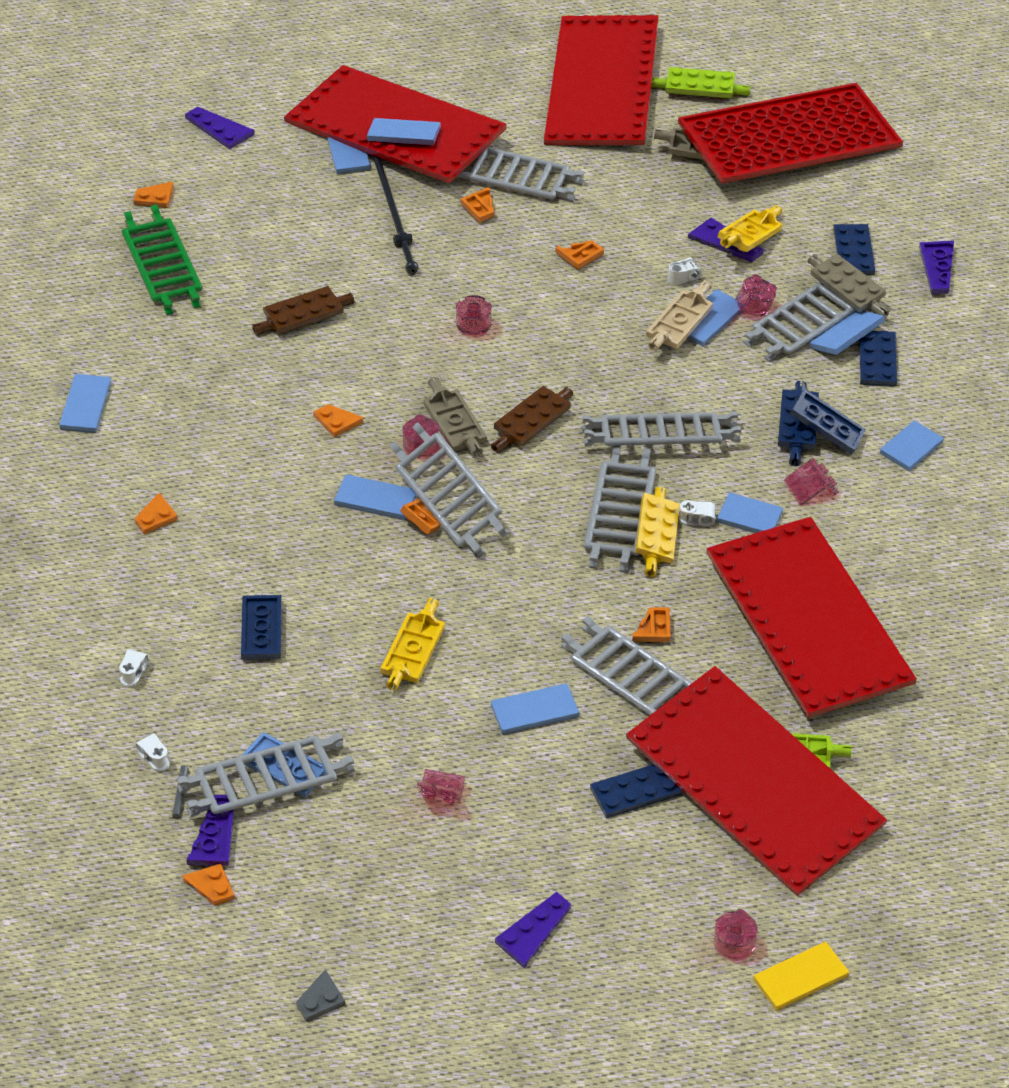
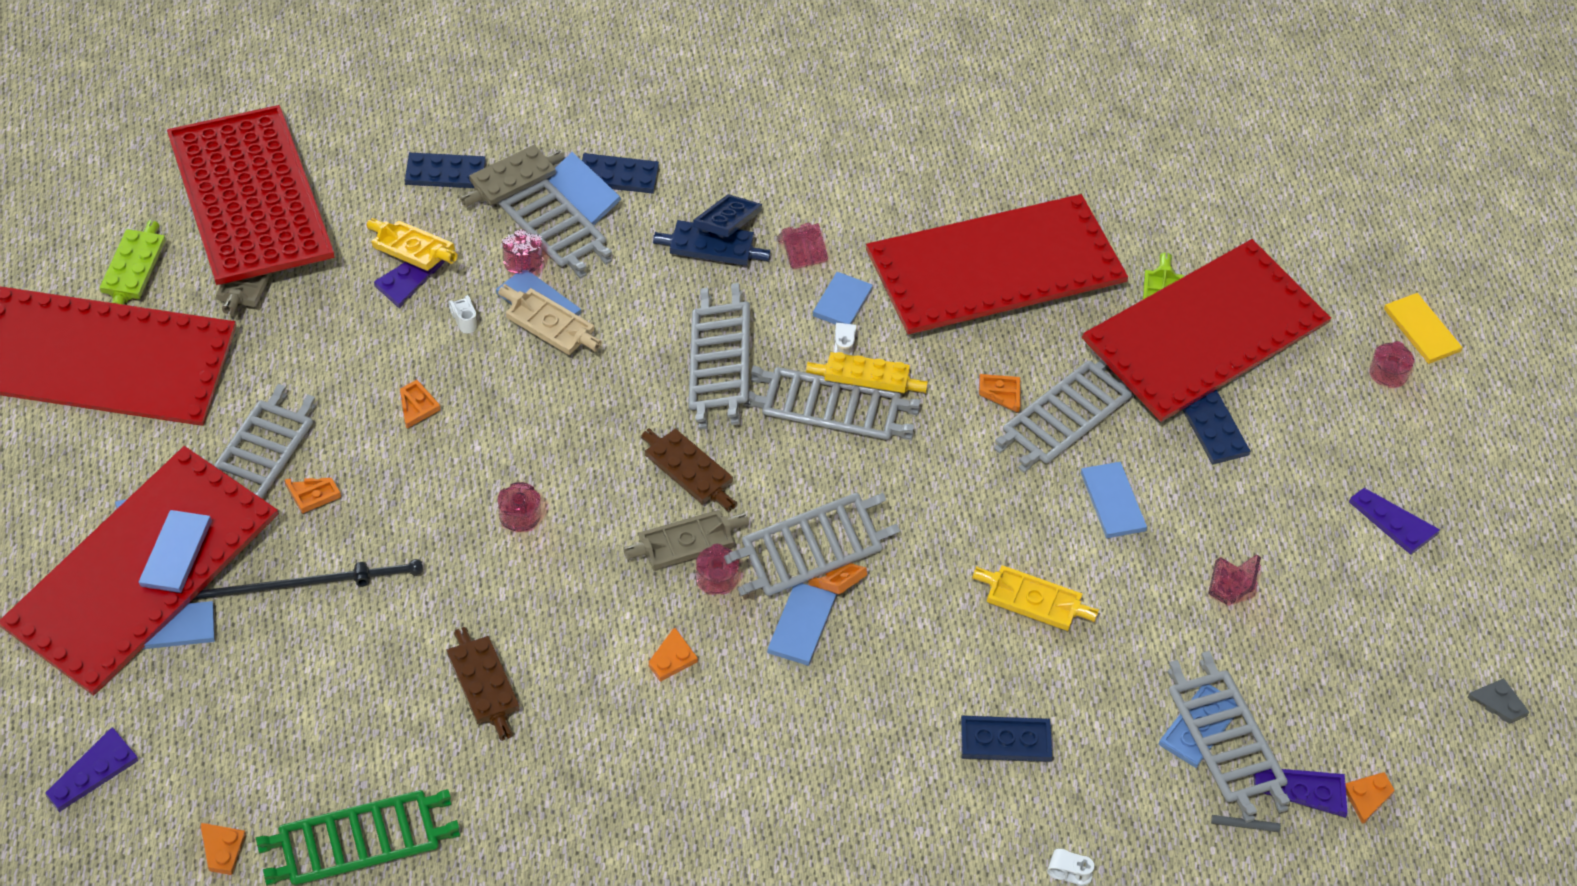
camera: 90 degrees left, 5 degrees up
(153, 752) = (1196, 845): white piece -> none
(155, 515) = (821, 846): orange wing -> none
(911, 445) = (750, 164): medium blue tile -> none
(937, 264) = (472, 106): dark purple wing -> none

